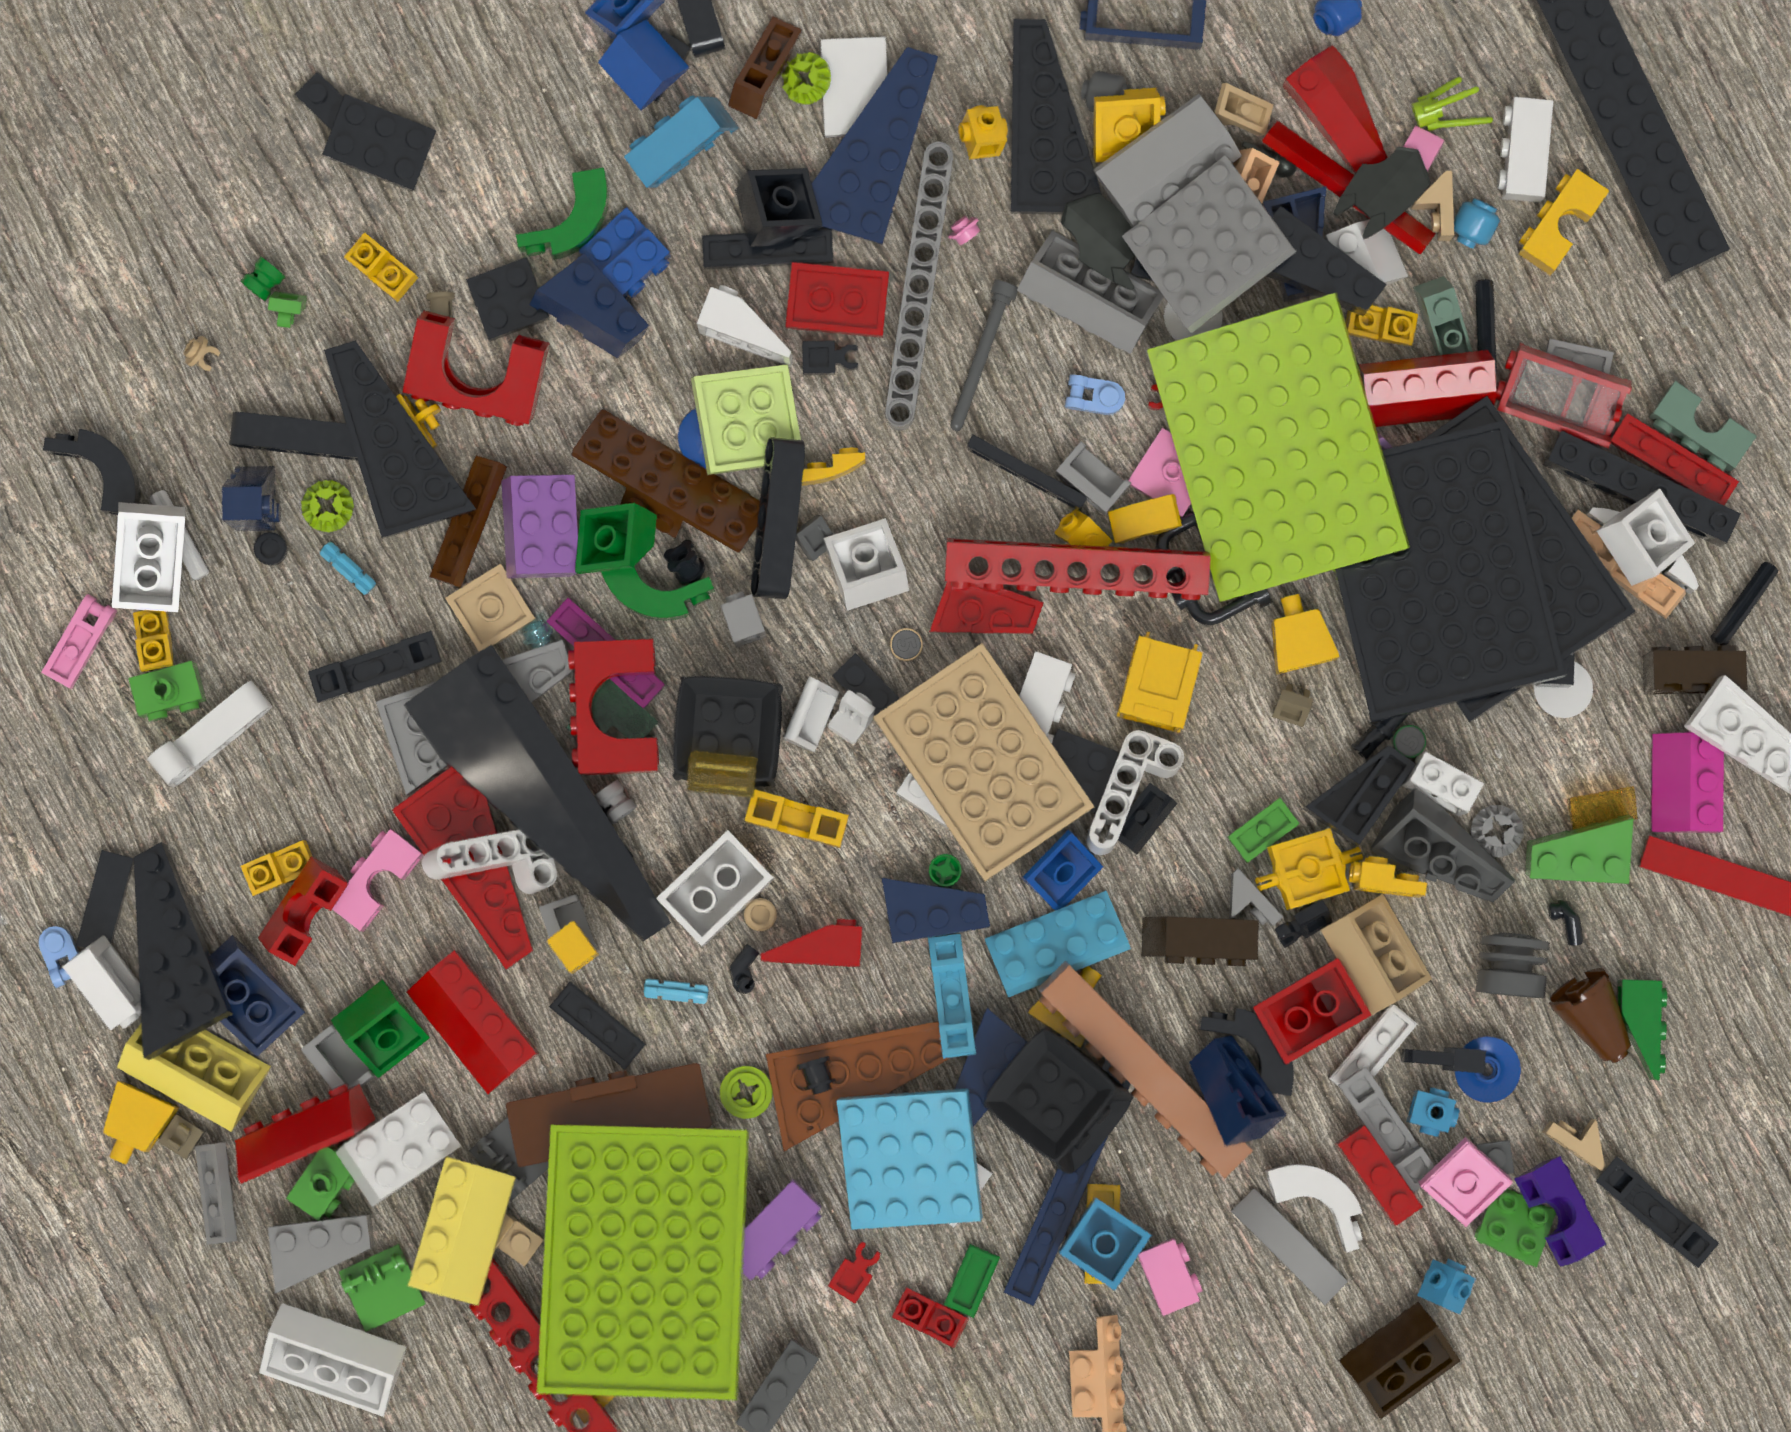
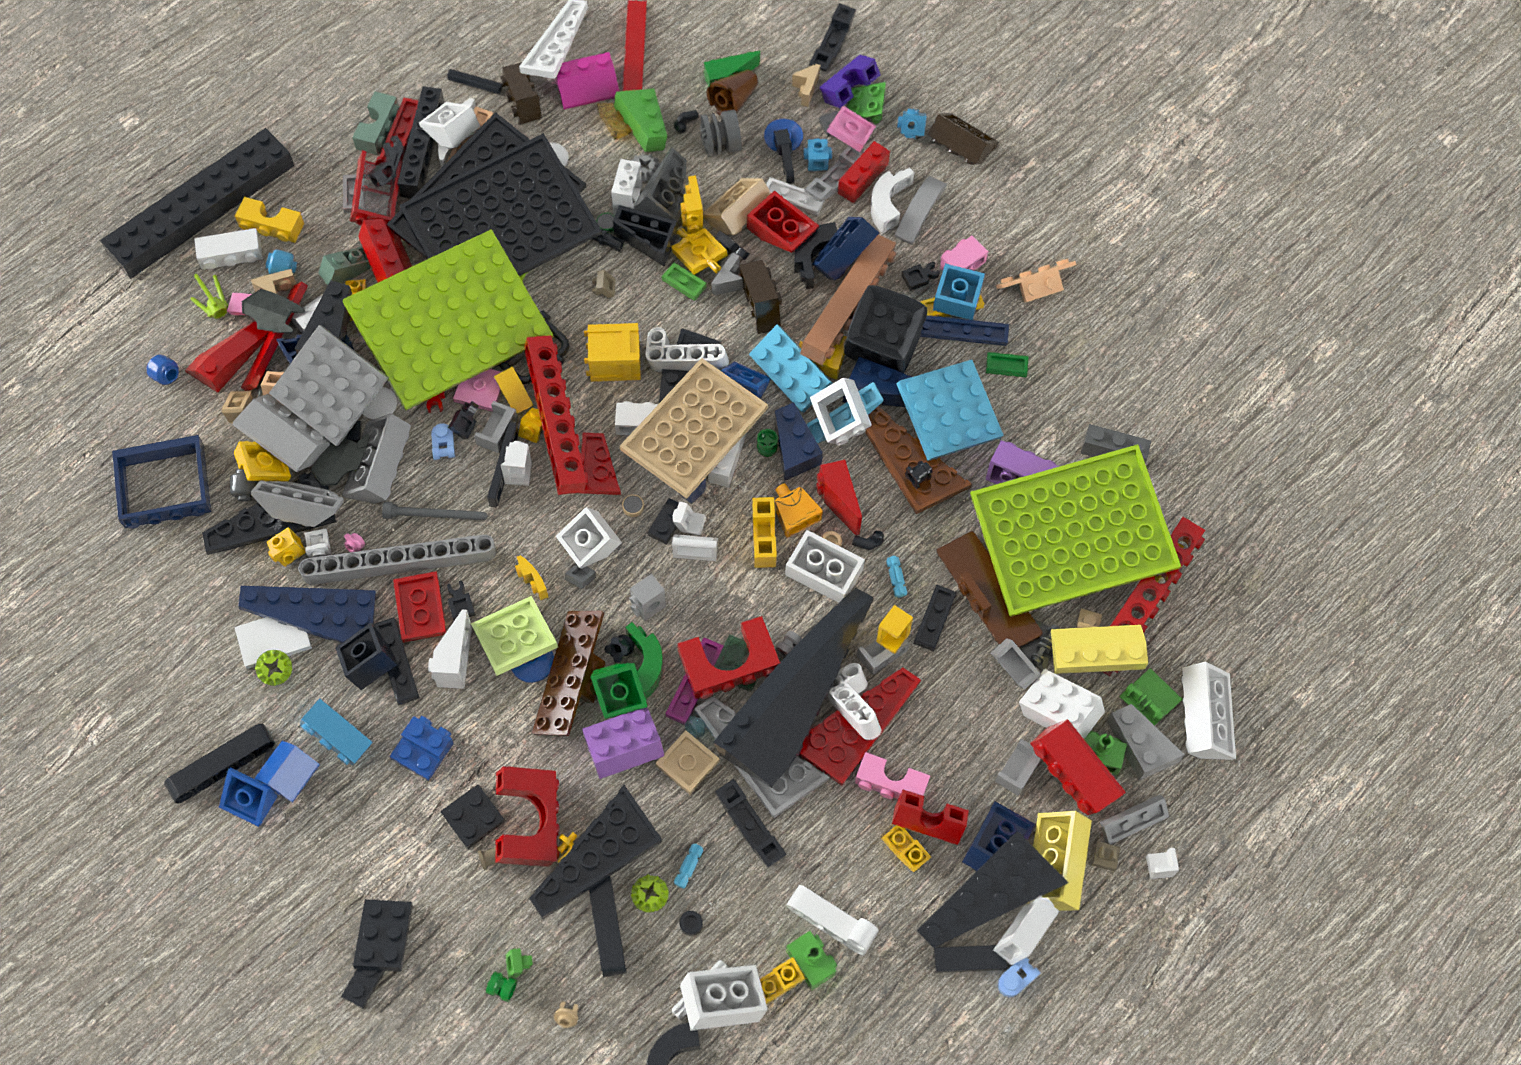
camera: 110 degrees left, 20 degrees down
(78, 642) = (797, 1035): bright pink plate -> none
(136, 1120) = (1108, 887): yellow torso -> none
(143, 1206) = (1162, 864): none -> white panel
(250, 499) = (659, 938): dark blue wedge -> none
(379, 1029) = (987, 748): green slope -> none
(381, 267) = (472, 908): yellow slope -> none
(466, 529) = (645, 793): reddish brown plate -> none
(472, 1021) = (961, 691): red slope -> none
(484, 1110) = (1015, 663): none -> light grey panel
(582, 223) = (400, 778): green arch -> none
(591, 306) = (463, 753): dark blue wedge -> none
(721, 774) = (753, 560): clear yellow slope -> none
(728, 719) = (723, 580): black piece -> none
(741, 1107) = (943, 509): lime gear -> none
(764, 68) = (275, 695): reddish brown slope -> none
(777, 518) = (574, 597): black beam -> none
(824, 877) = (795, 509): none -> light orange torso
(851, 1277) = (1031, 427): red plate -> none
(930, 1317) = (1037, 379): red slope -> none
(949, 1012) = (830, 394): none -> white window
(978, 178) = (317, 543): none -> white bracket
(1015, 493) = (517, 464): none -> white window
(1044, 163) = (296, 502): none -> light grey wedge
(1115, 433) = (463, 421): none -> black plate
(1164, 1195) = (917, 276): none -> black plate
(1300, 638) = (562, 290): yellow torso -> none
(1486, 317) = (338, 246): black axle -> none
(1599, 426) = (391, 163): none -> black piece

